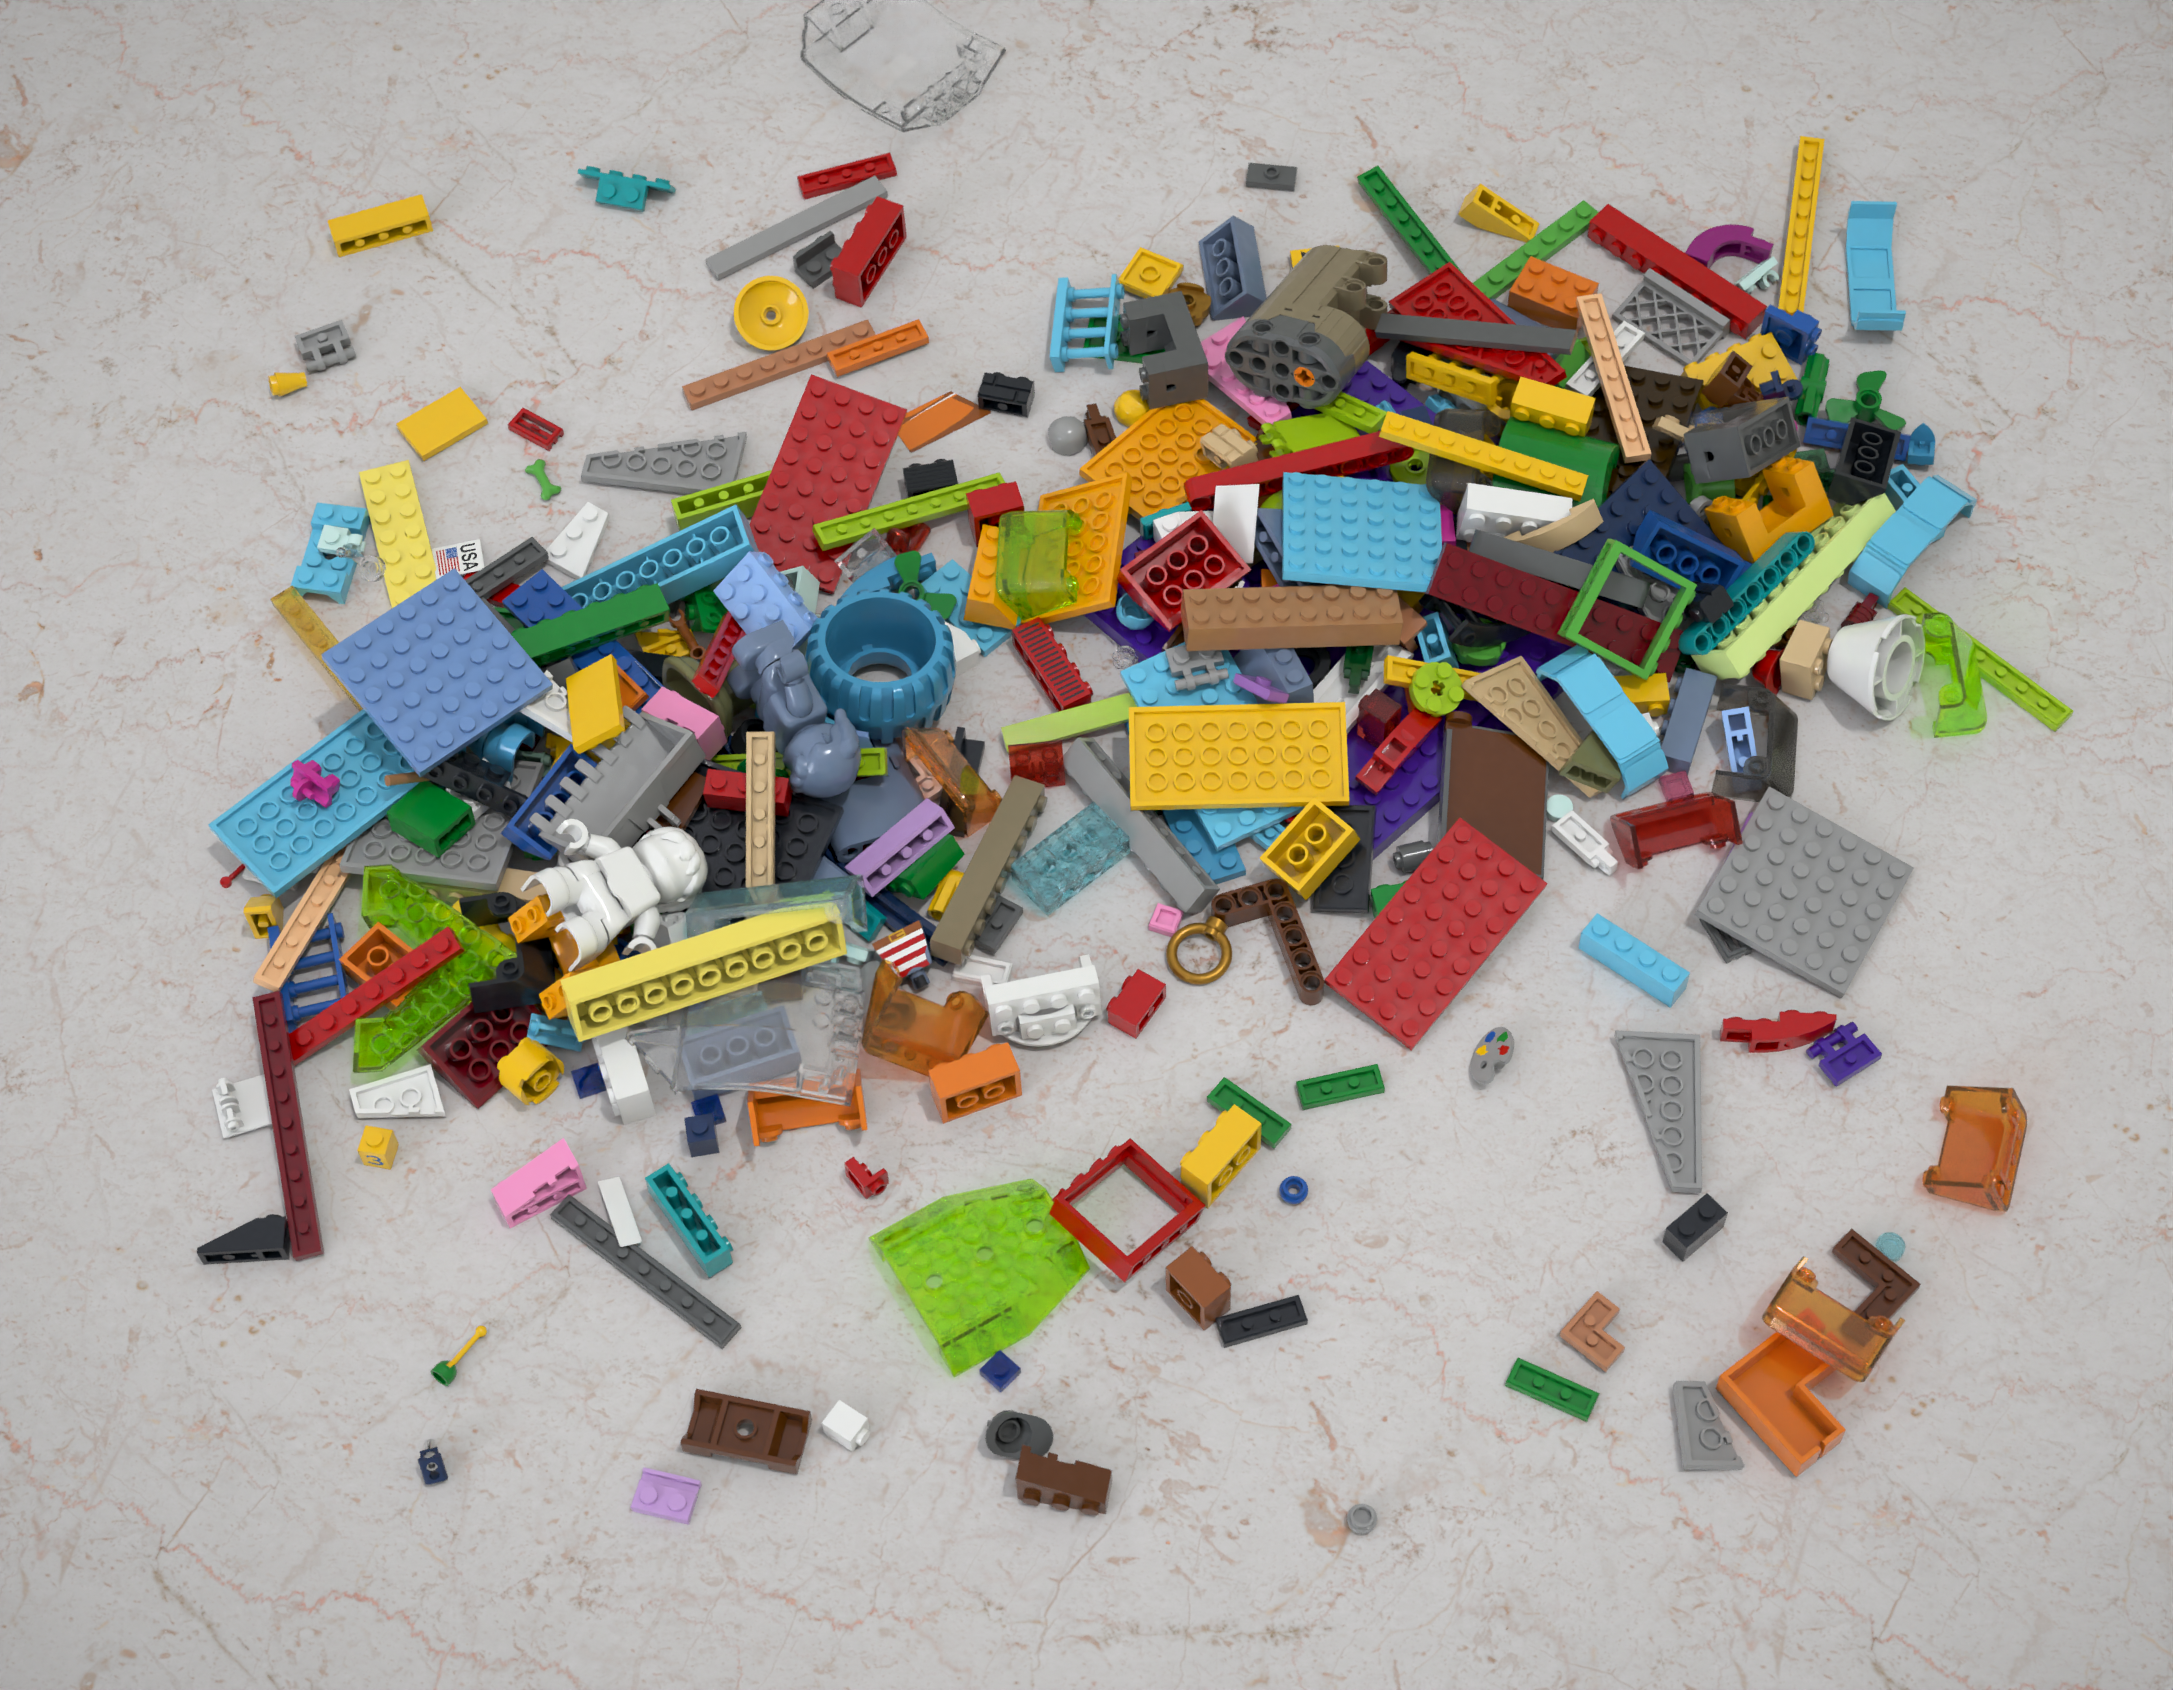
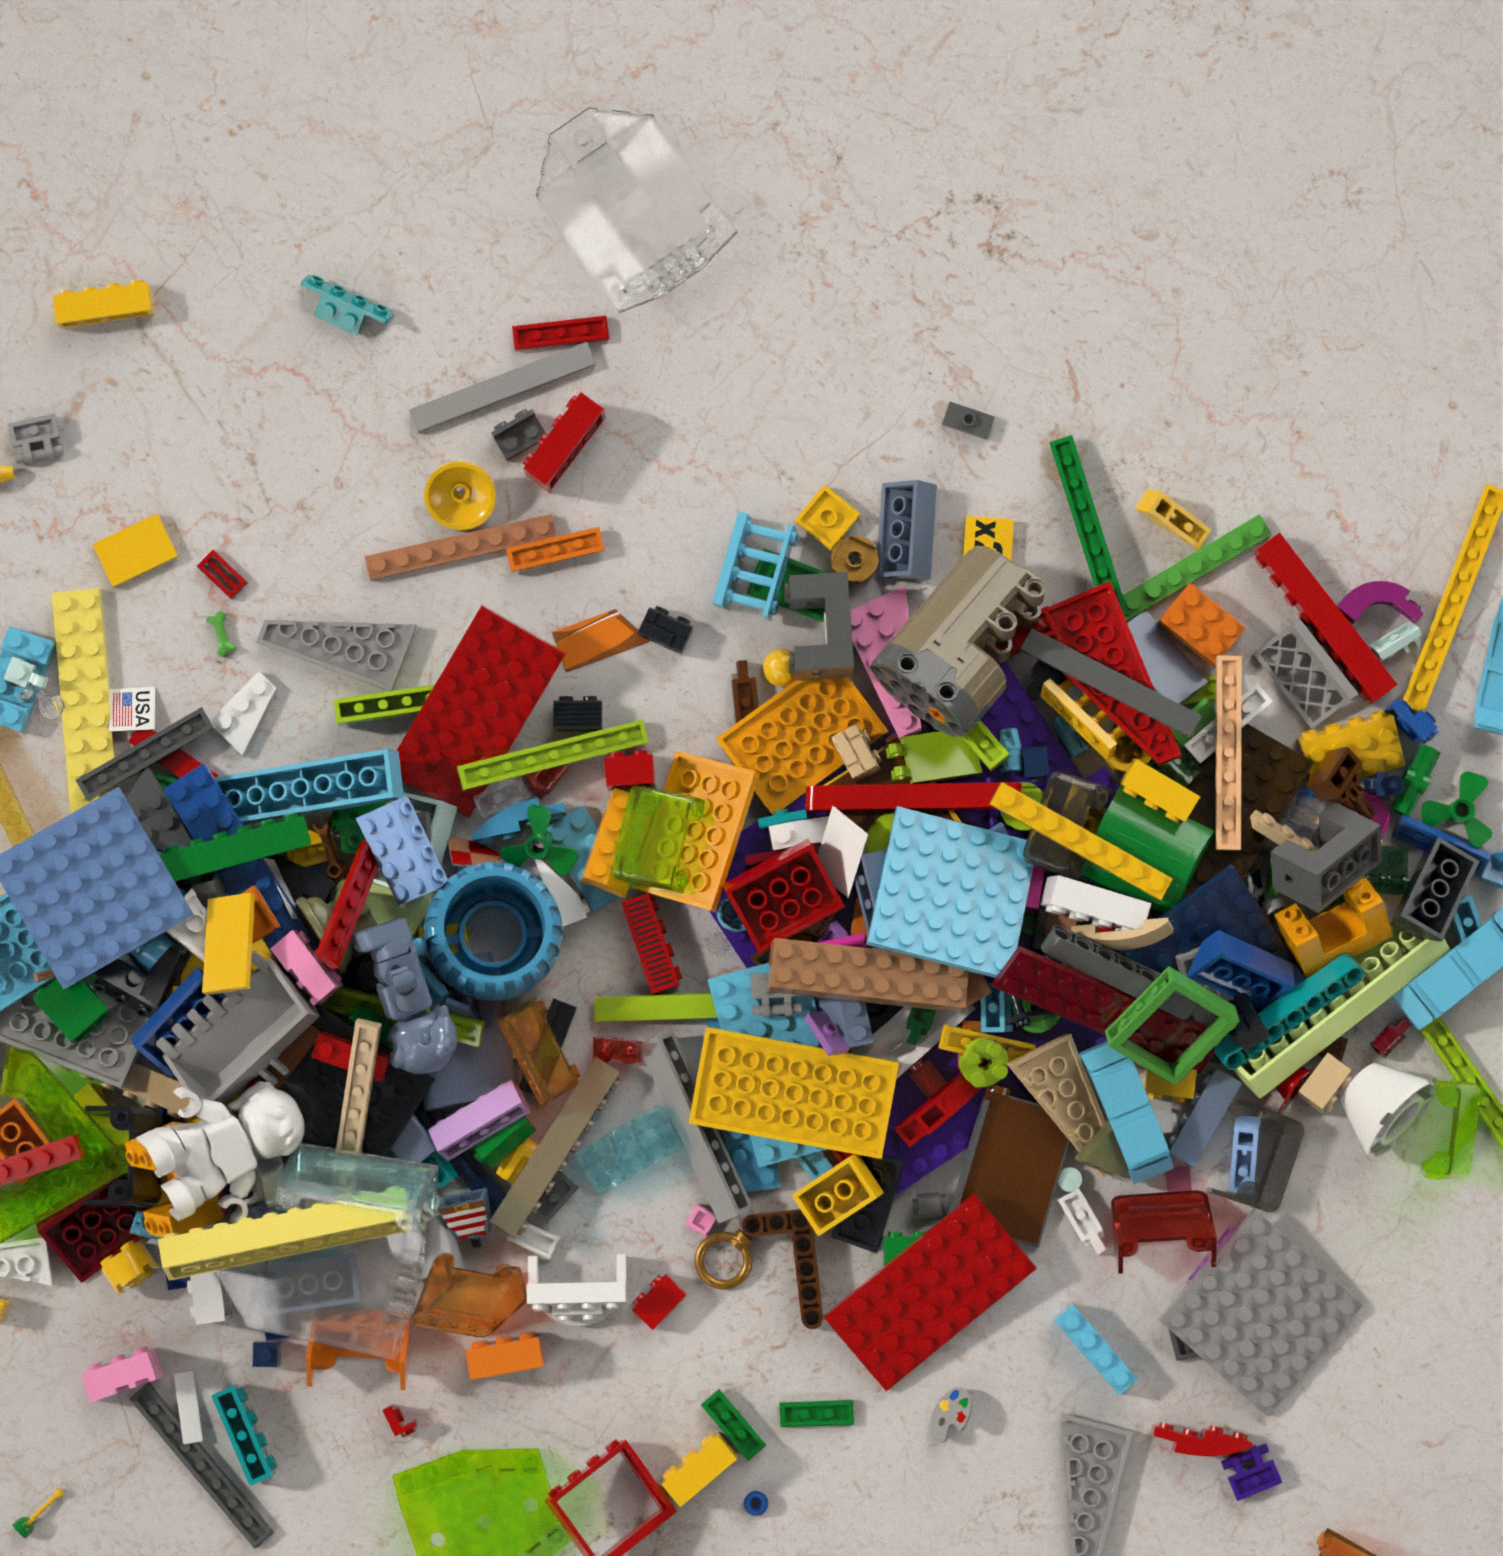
camera: 10 degrees right, 25 degrees up
(1067, 435) = (714, 686): light grey hair -> none

